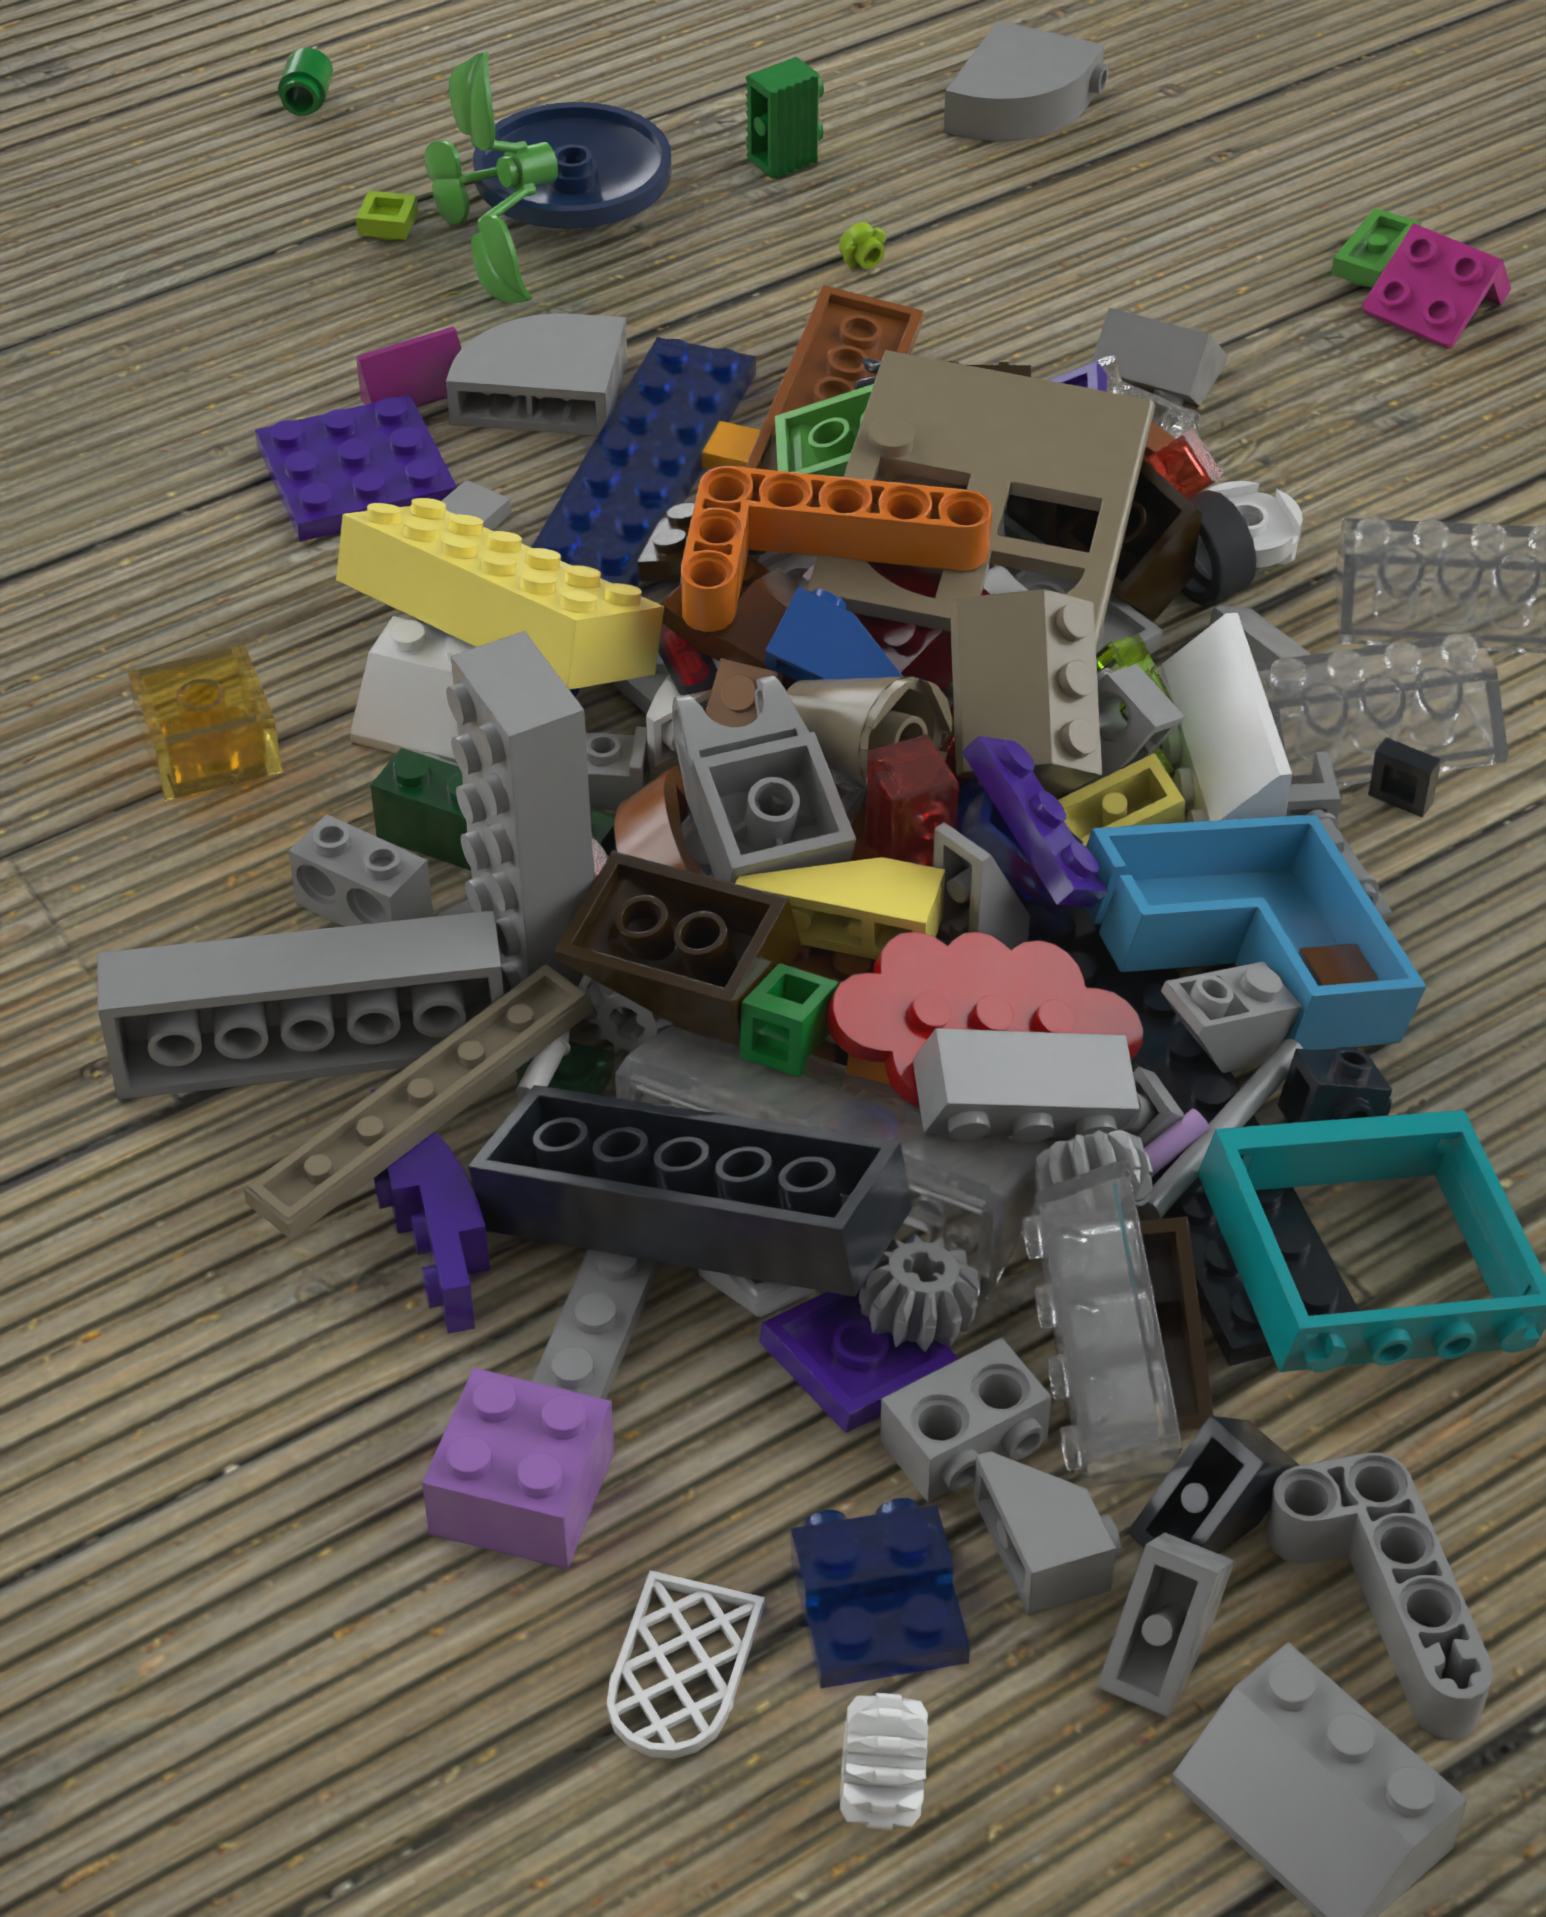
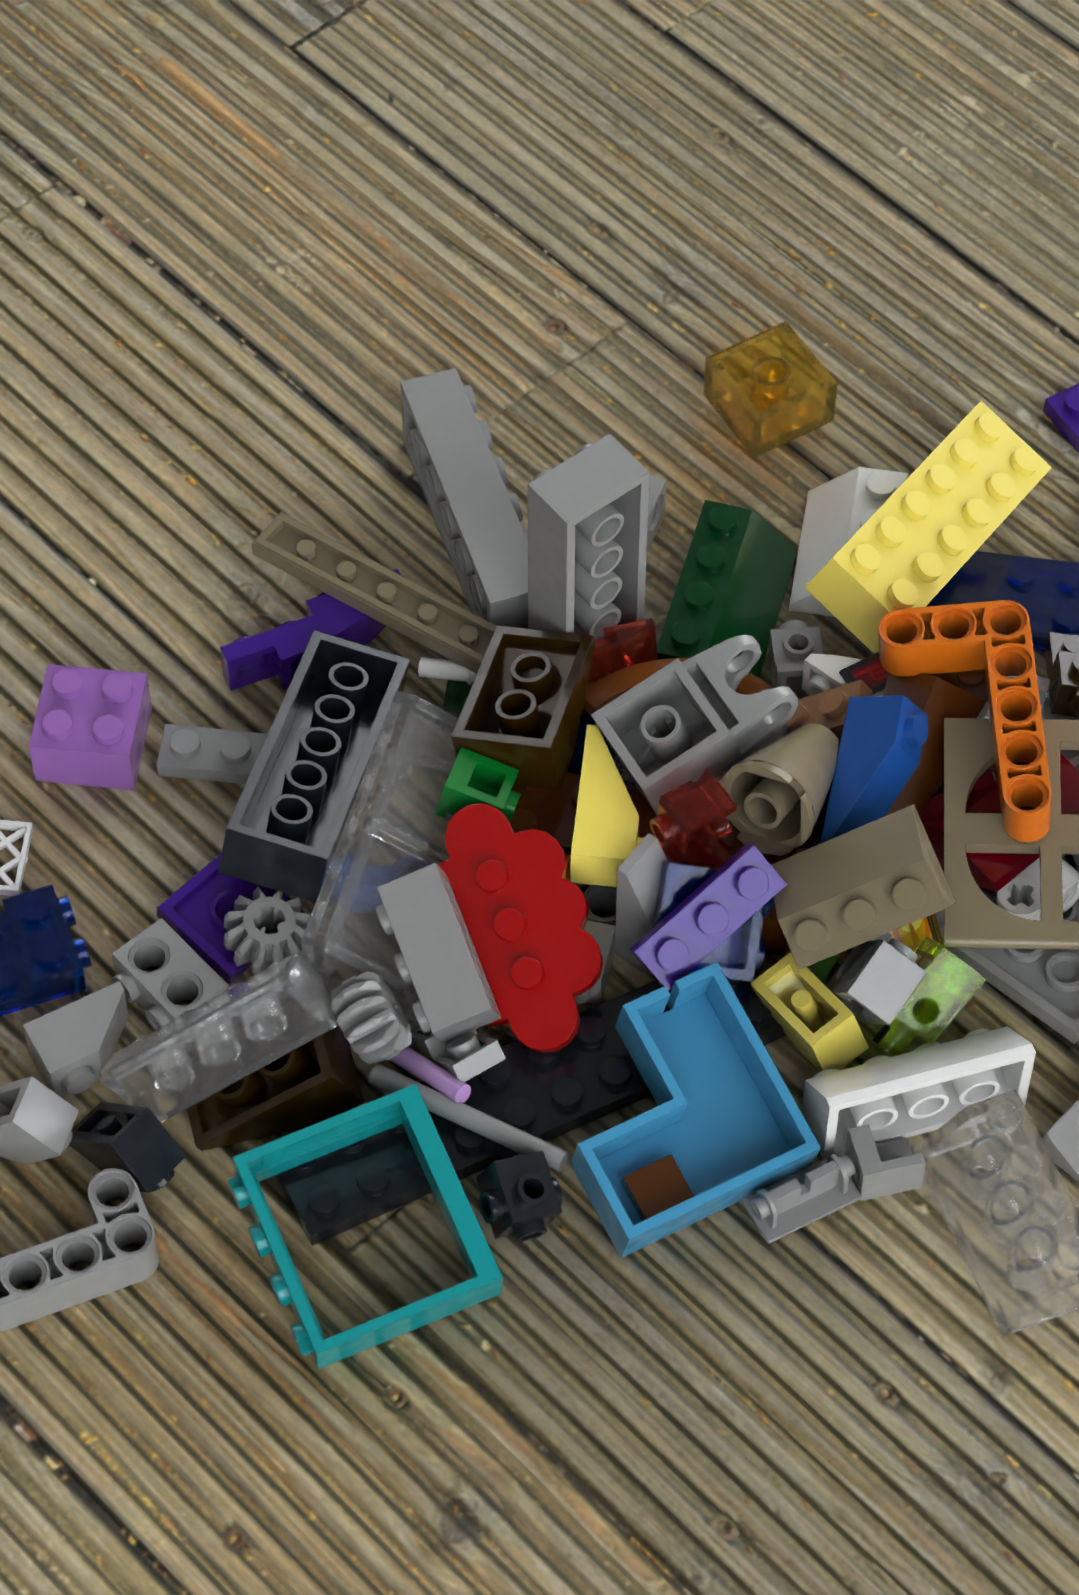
camera: 80 degrees right, 10 degrees up
(1234, 1013) = (563, 1093): light grey slope -> none
(1404, 777) = (935, 1239): black plate -> none

